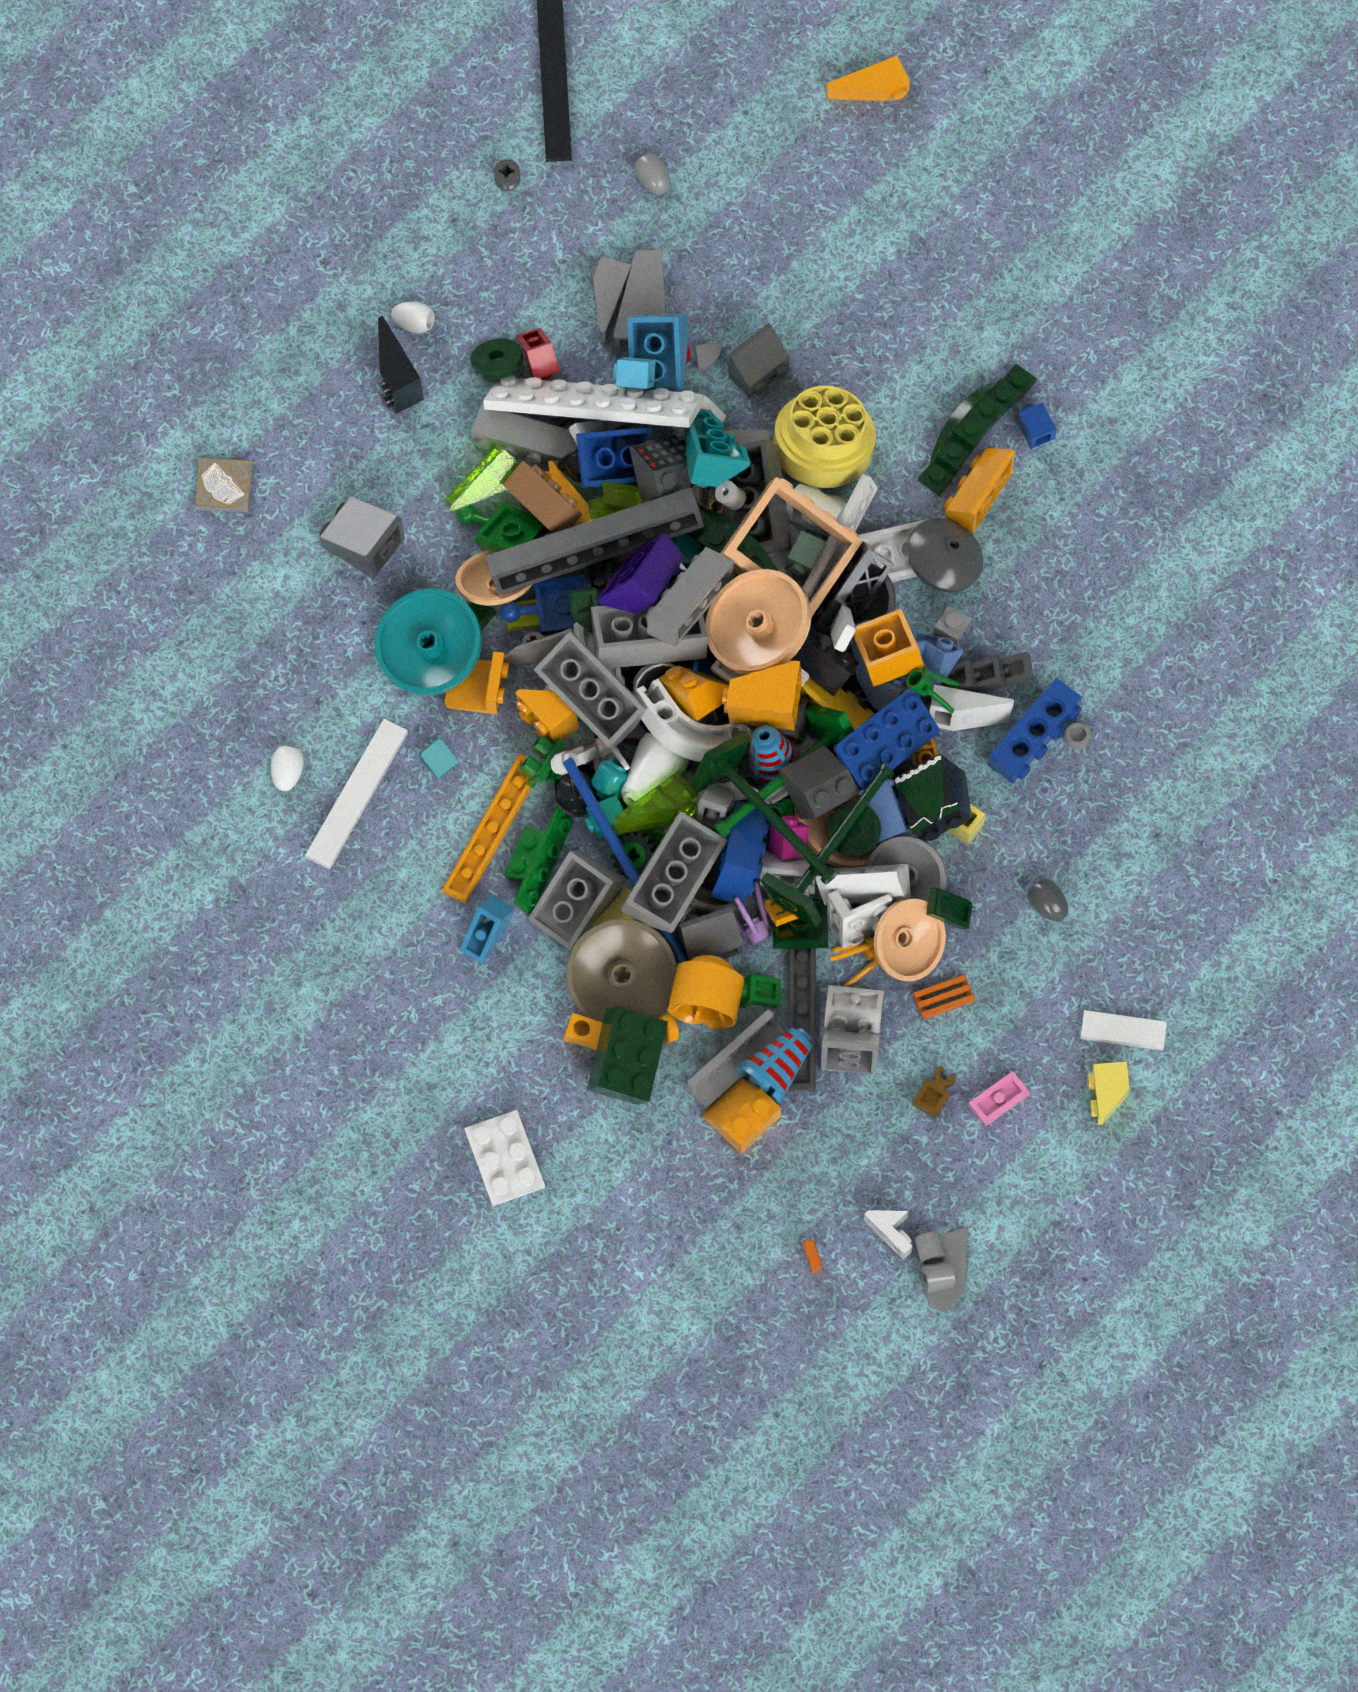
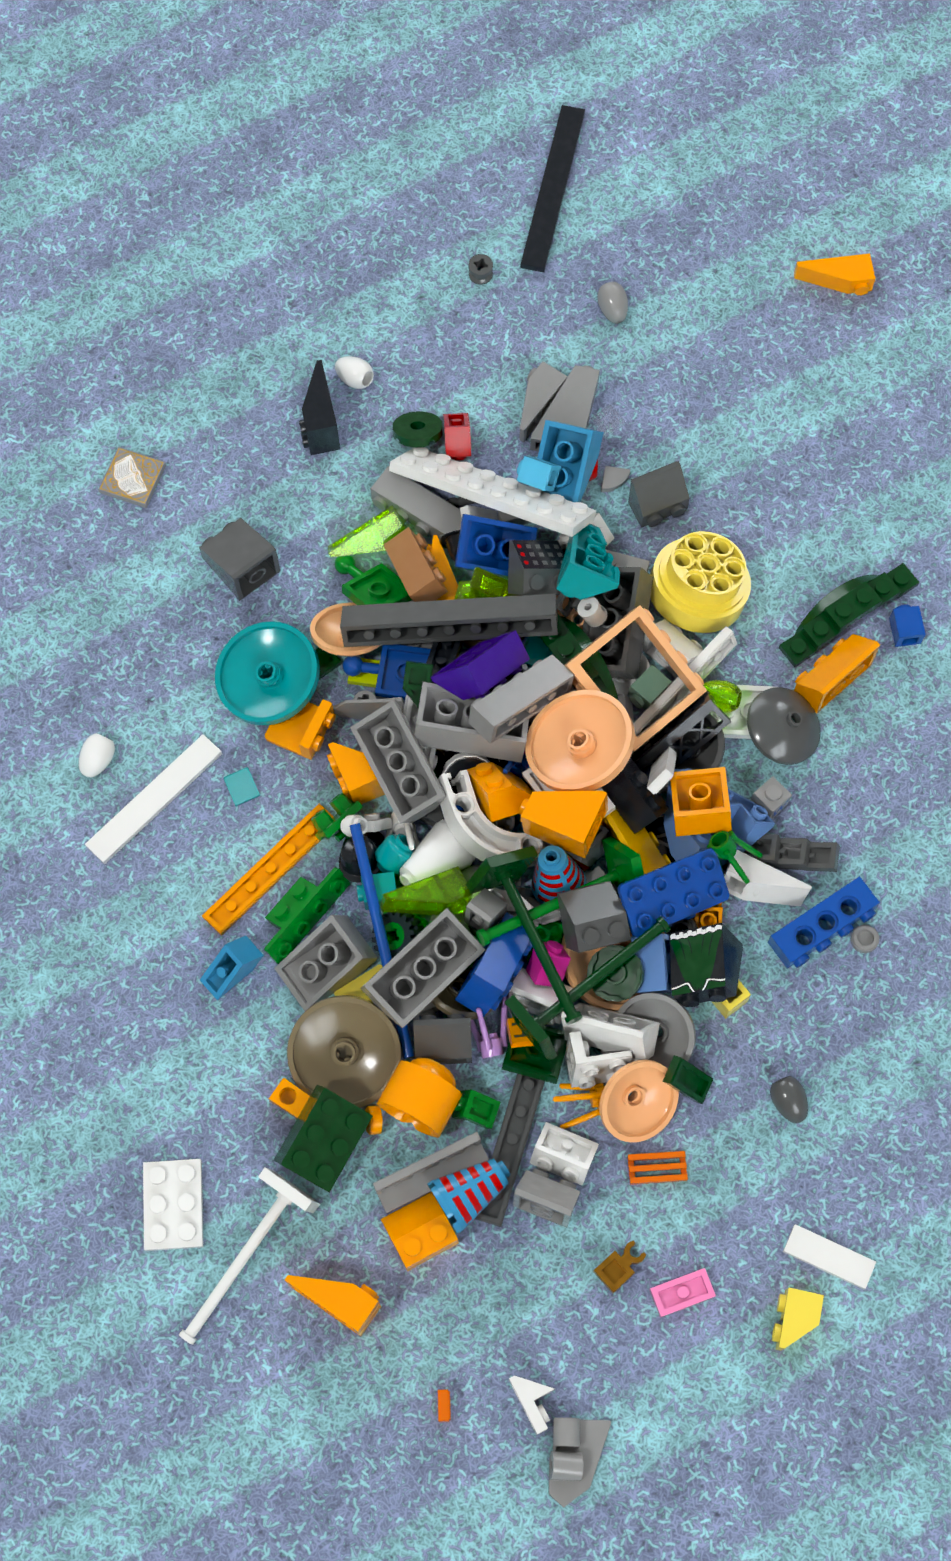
camera: 15 degrees right, 0 degrees up
(610, 1113) = (286, 1195): none -> white tile
(690, 1192) = (343, 1301): none -> light orange slope
(881, 539) = (726, 694): none -> clear neon green animal

